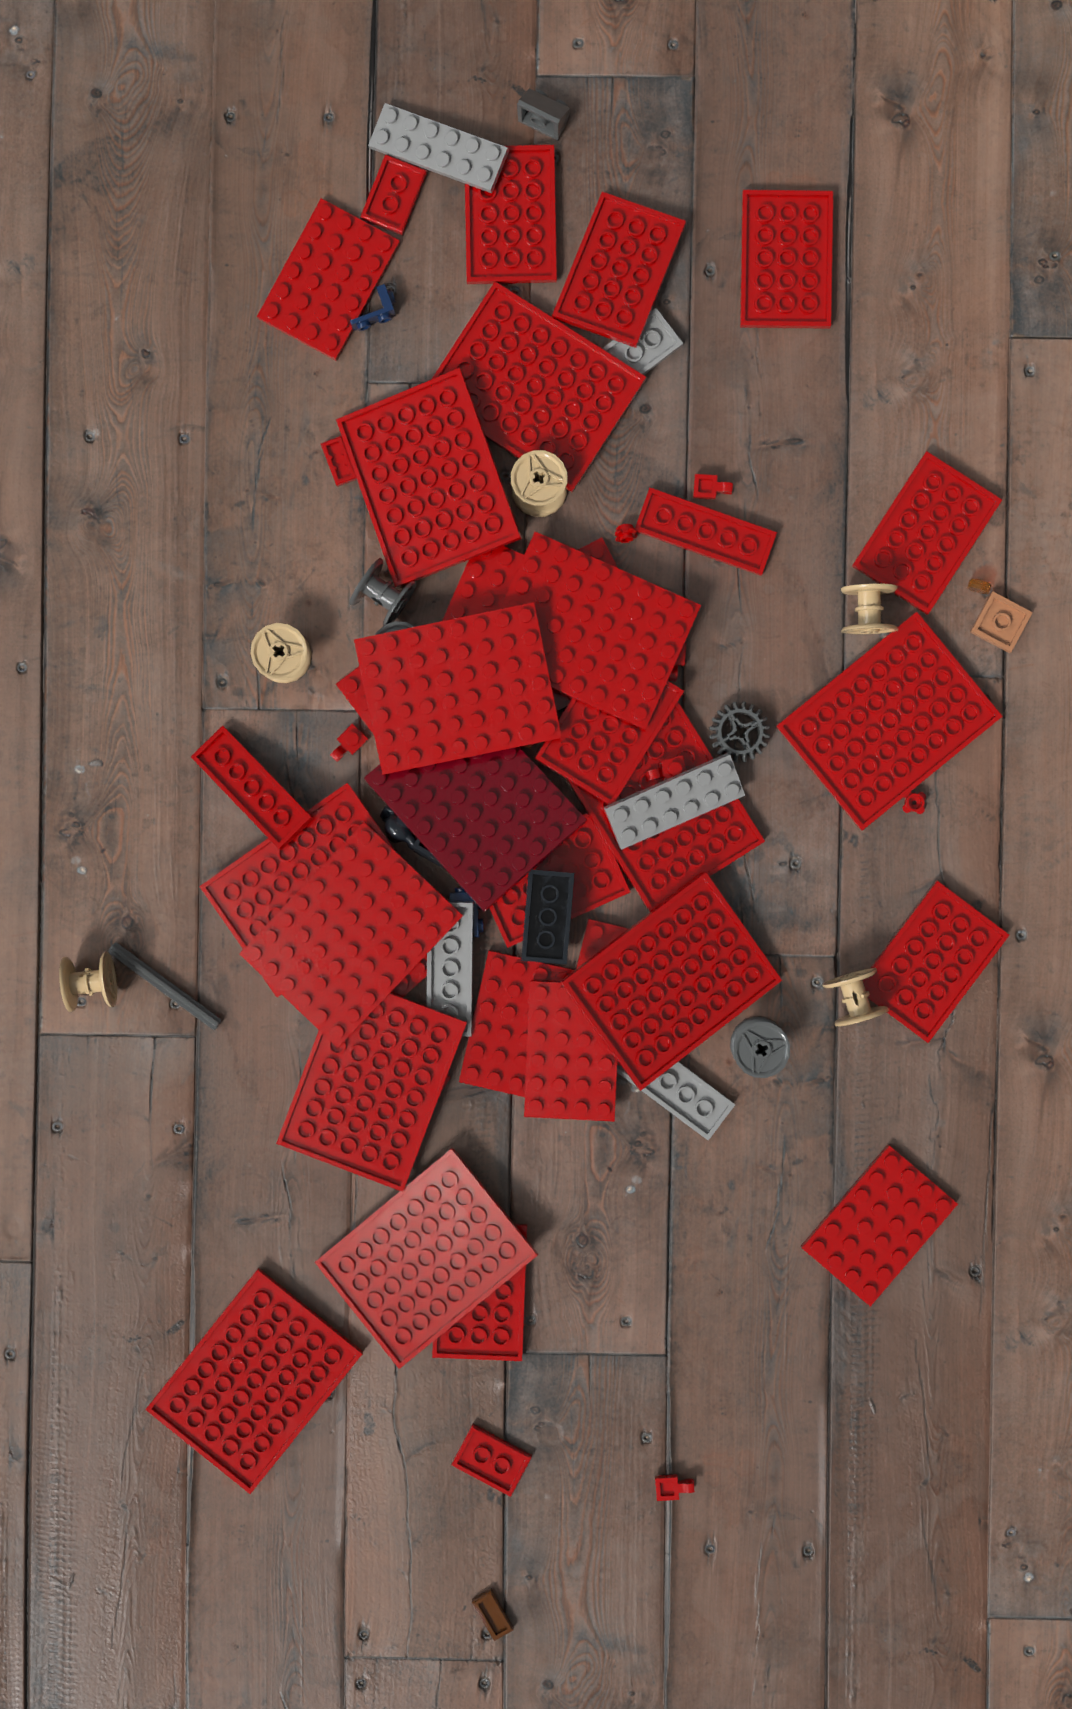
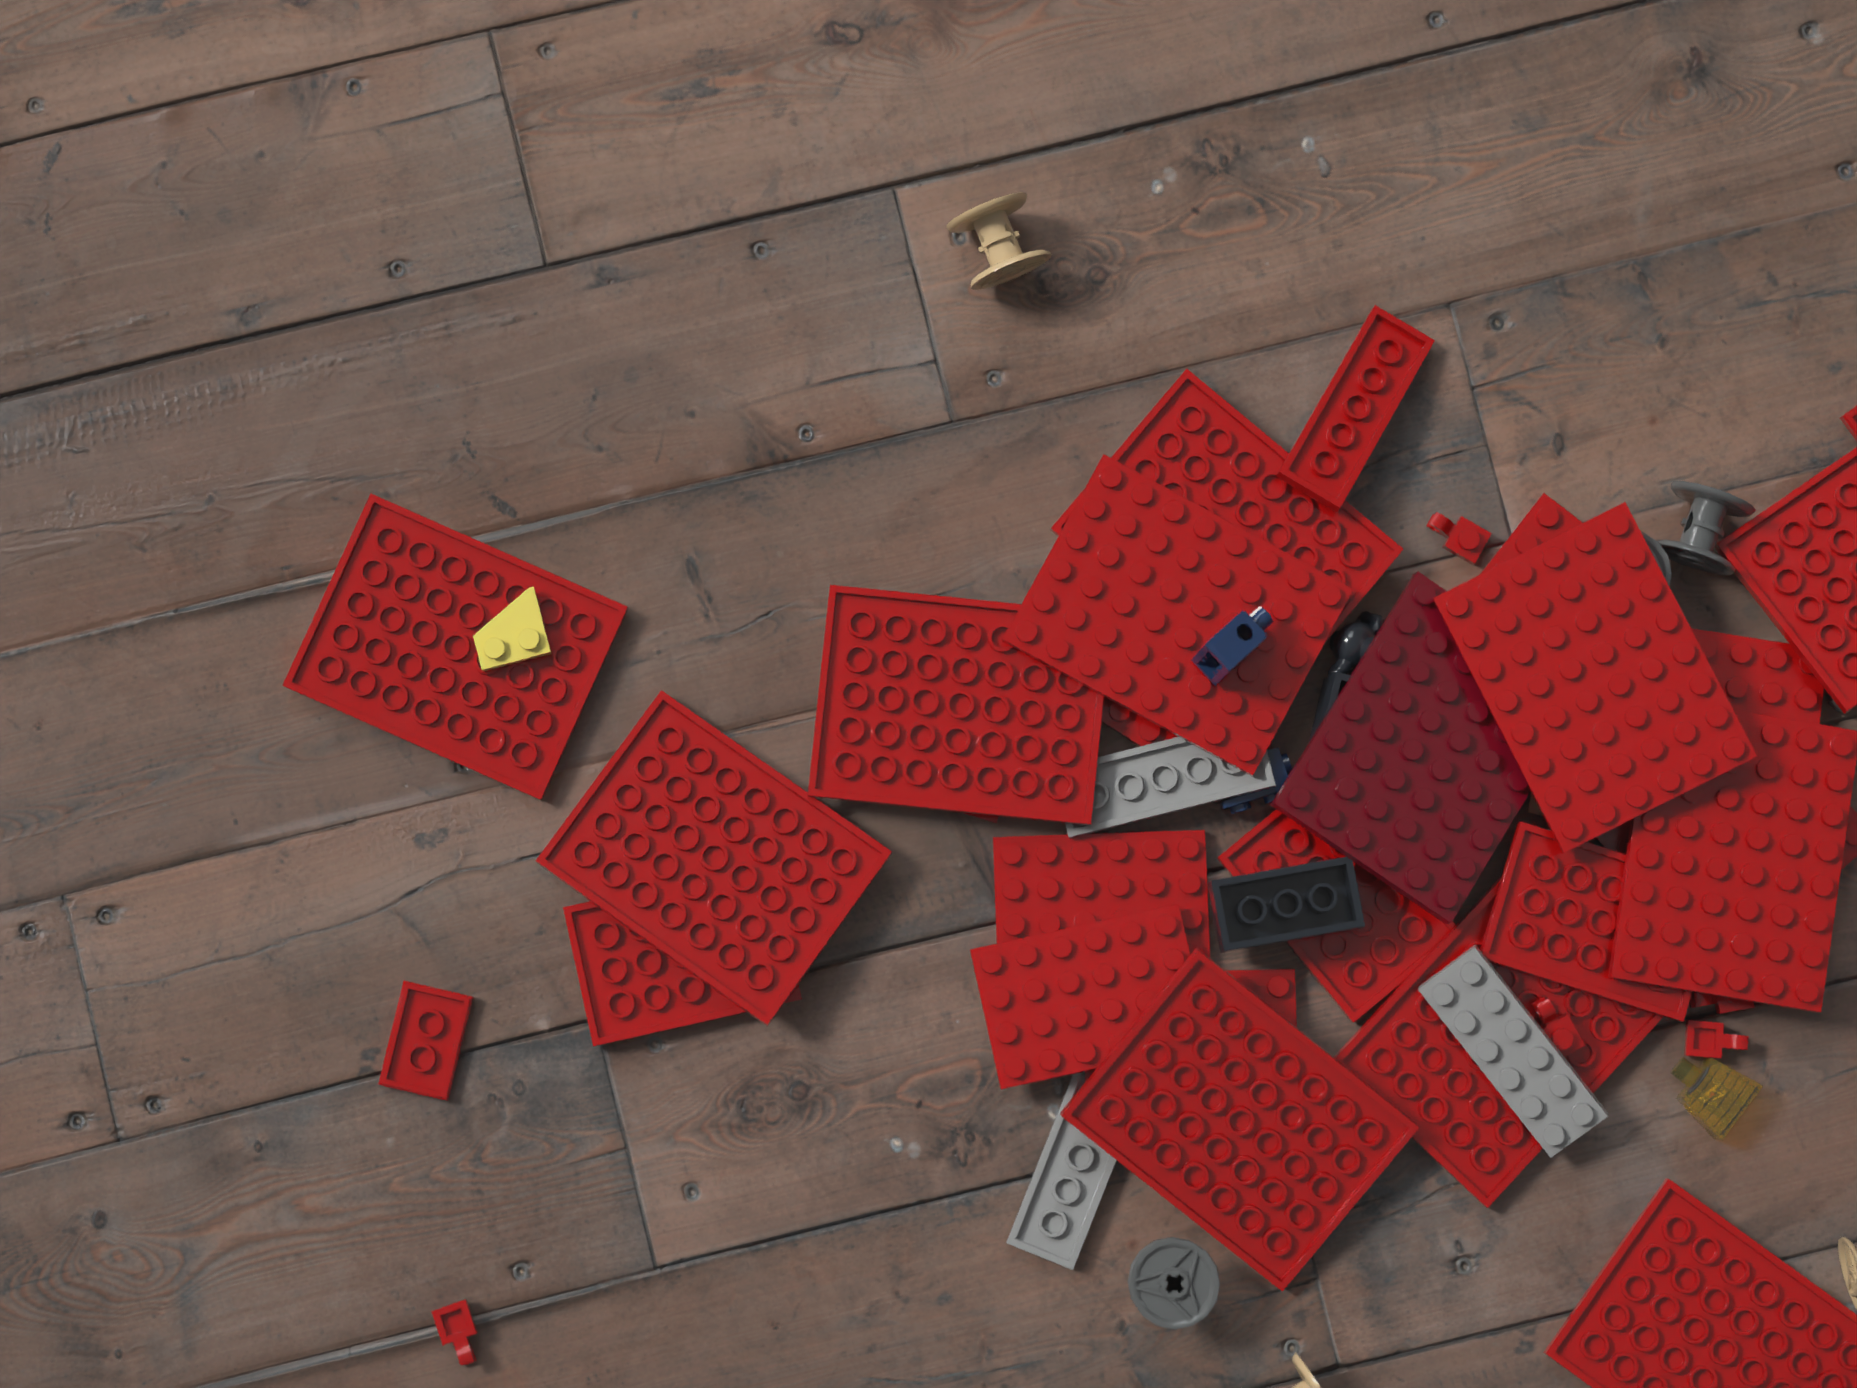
camera: 75 degrees right, 5 degrees down
(164, 986) = (1018, 356): dark grey axle -> none
(255, 1345) = (513, 634): none -> light yellow wing
(290, 641) = (1591, 401): tan piece -> none
(381, 916) = (1232, 644): none -> dark blue torso
(492, 1614) = (188, 1105): reddish brown tile -> none
(698, 677) = (1707, 1039): none -> red plate
(732, 682) = (1714, 1094): none -> clear yellow torso
(734, 722) = (1665, 1103): dark grey gear -> none

